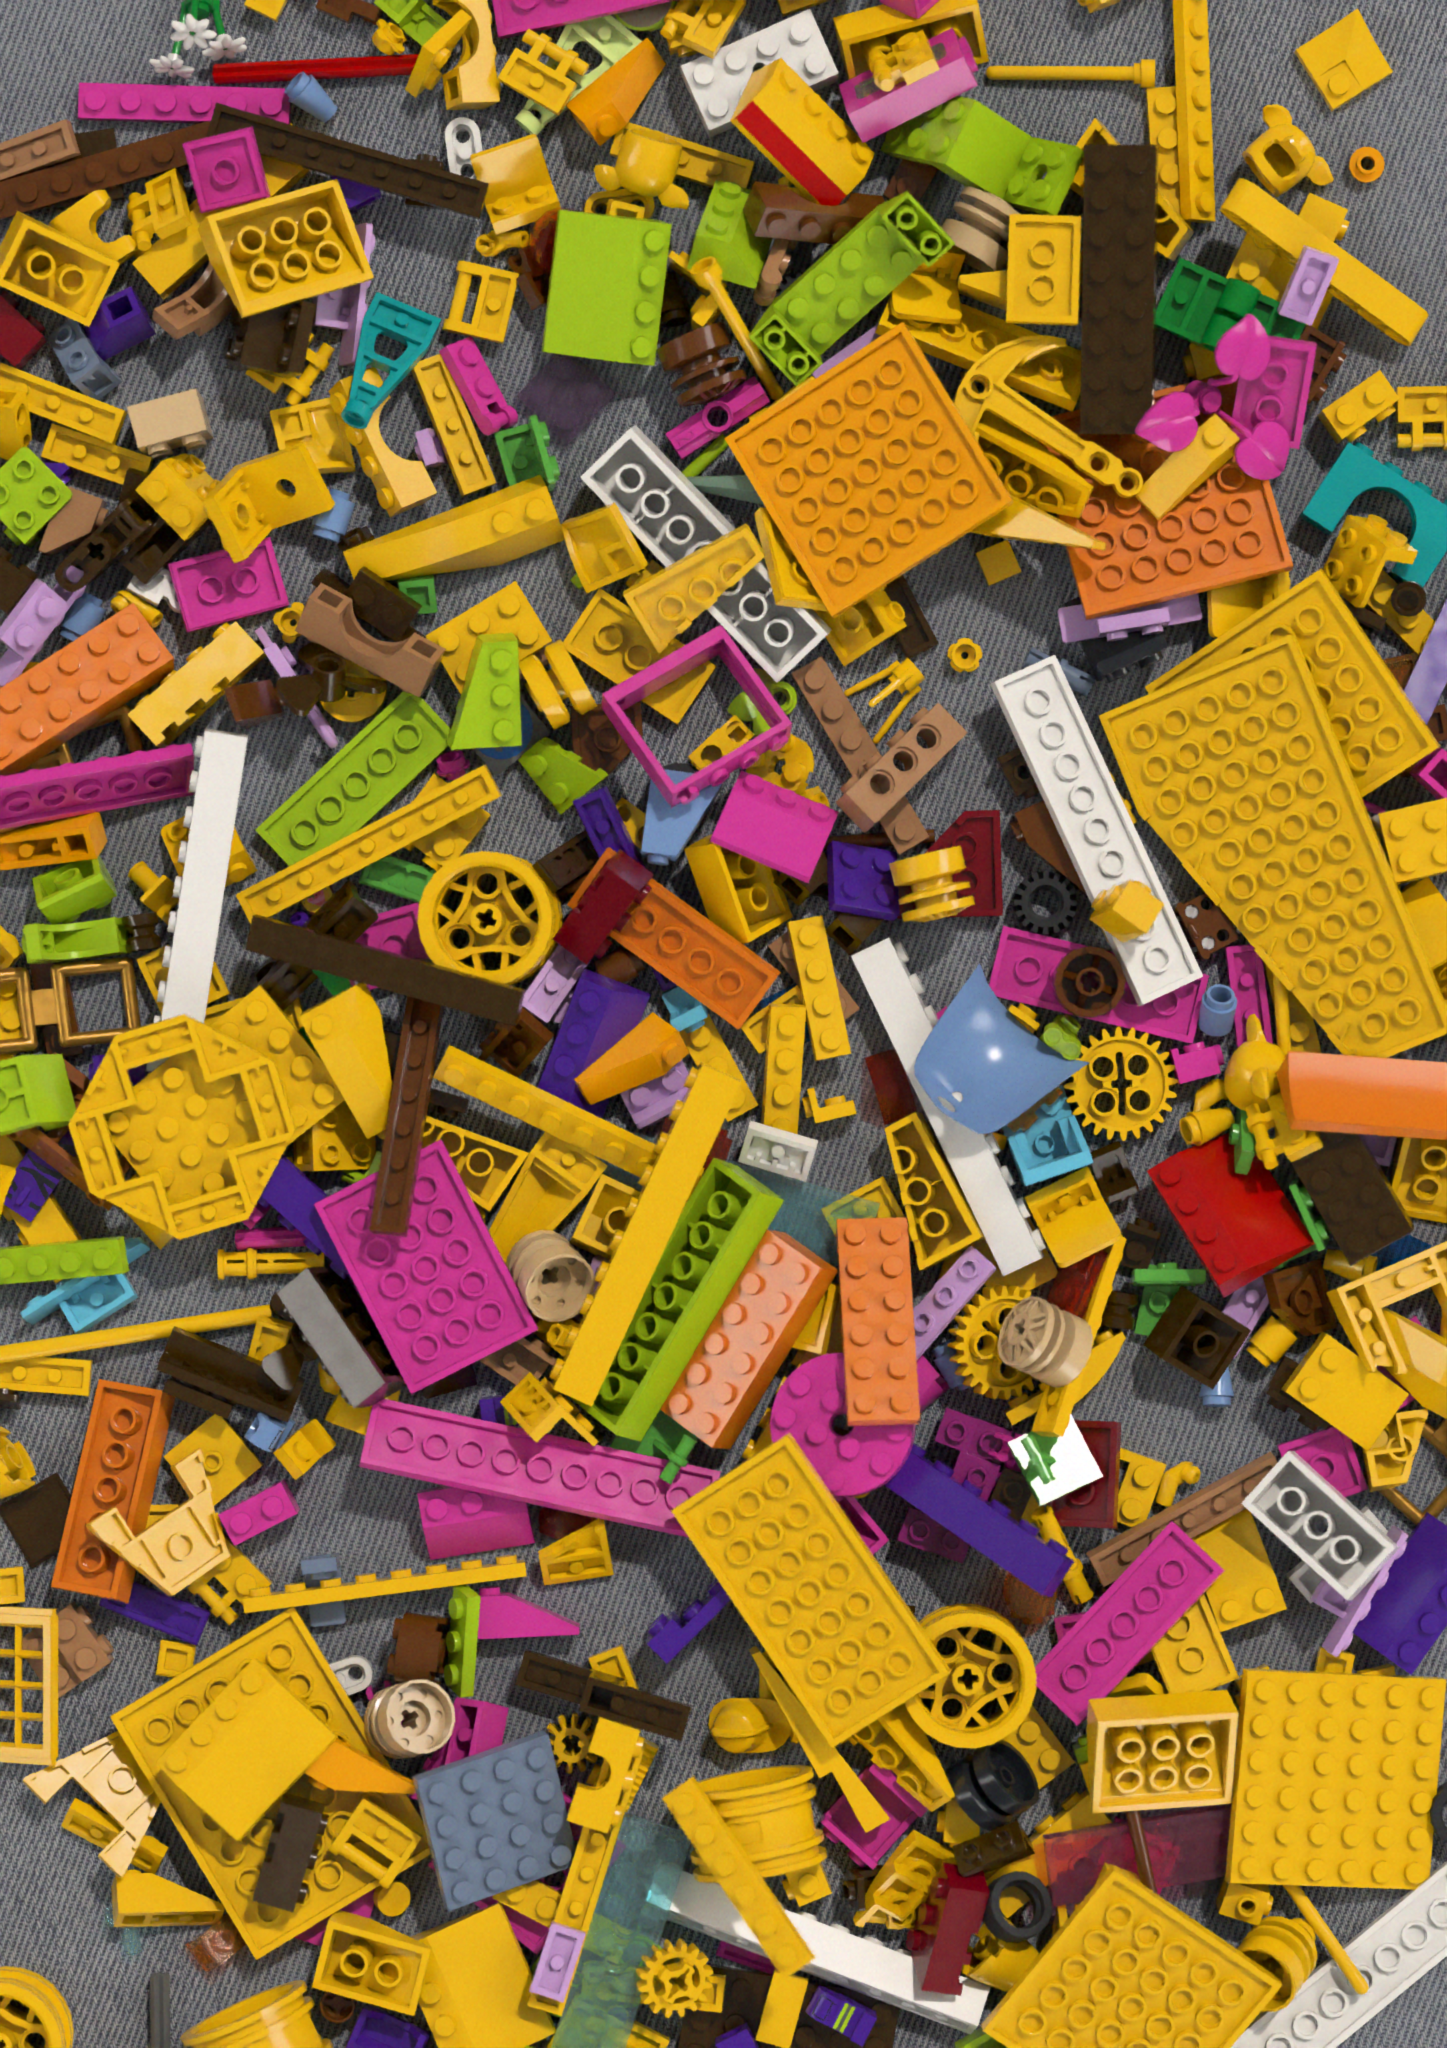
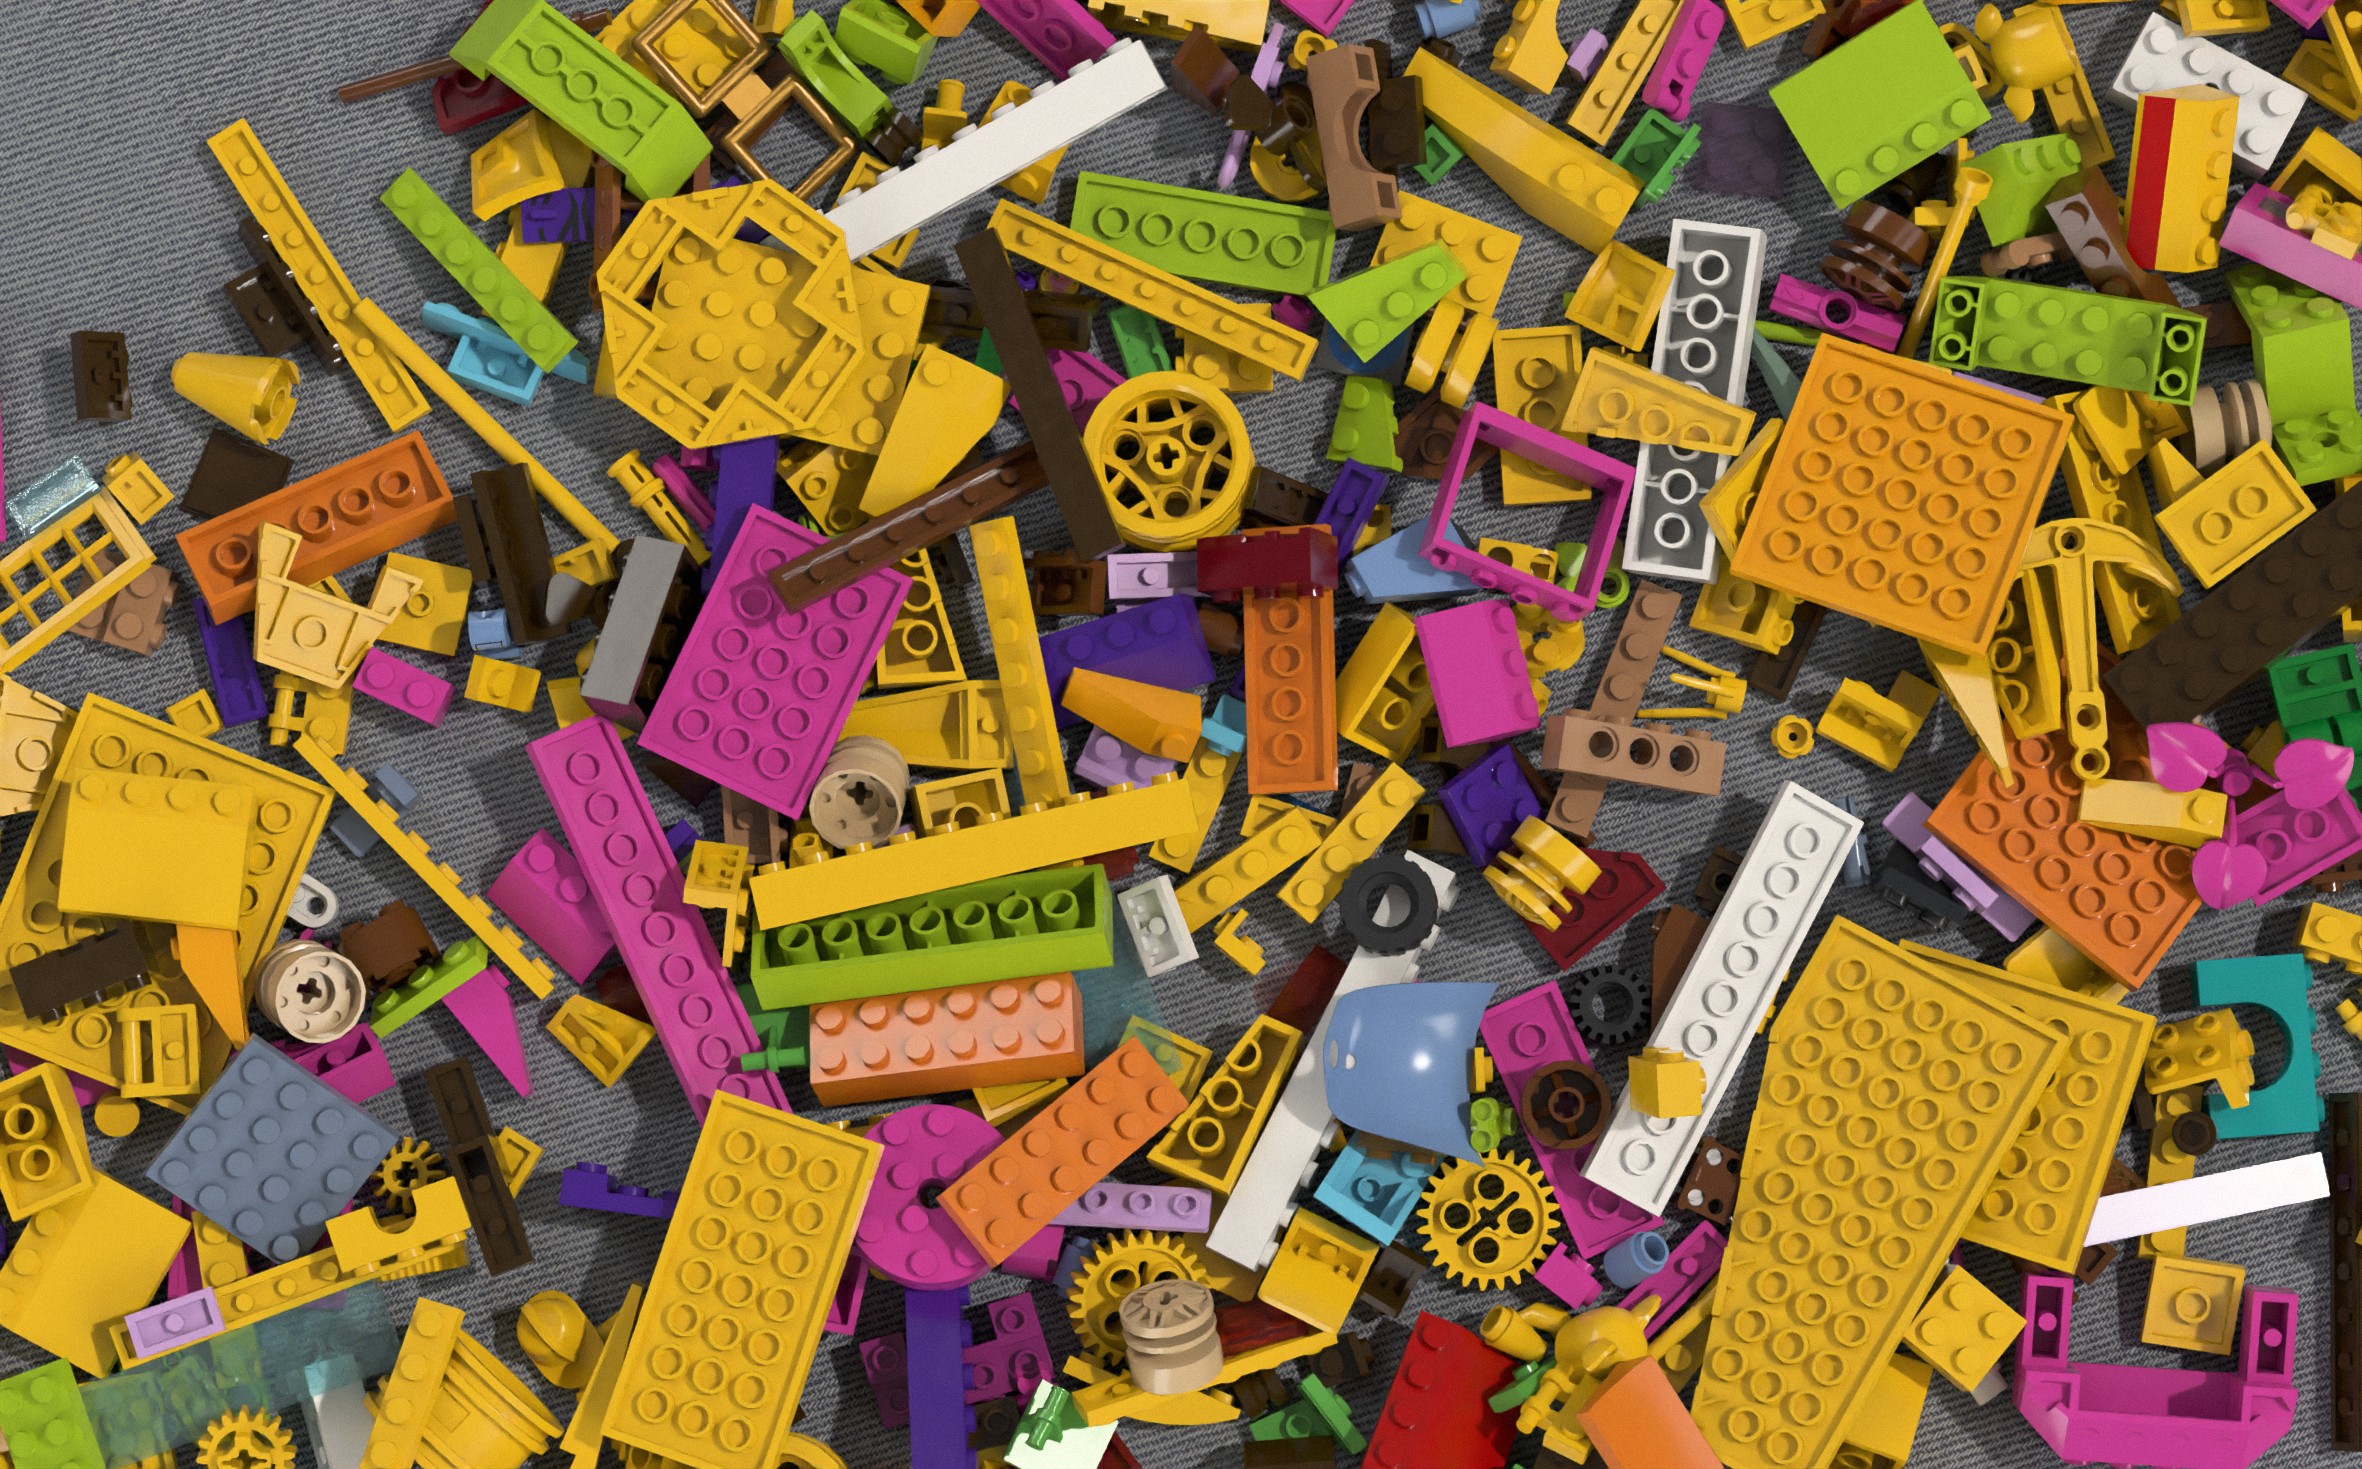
camera: 50 degrees right, 5 degrees down
(851, 1003) = (1380, 872): none -> black tyre
(994, 602) = (1869, 724): none -> yellow bracket

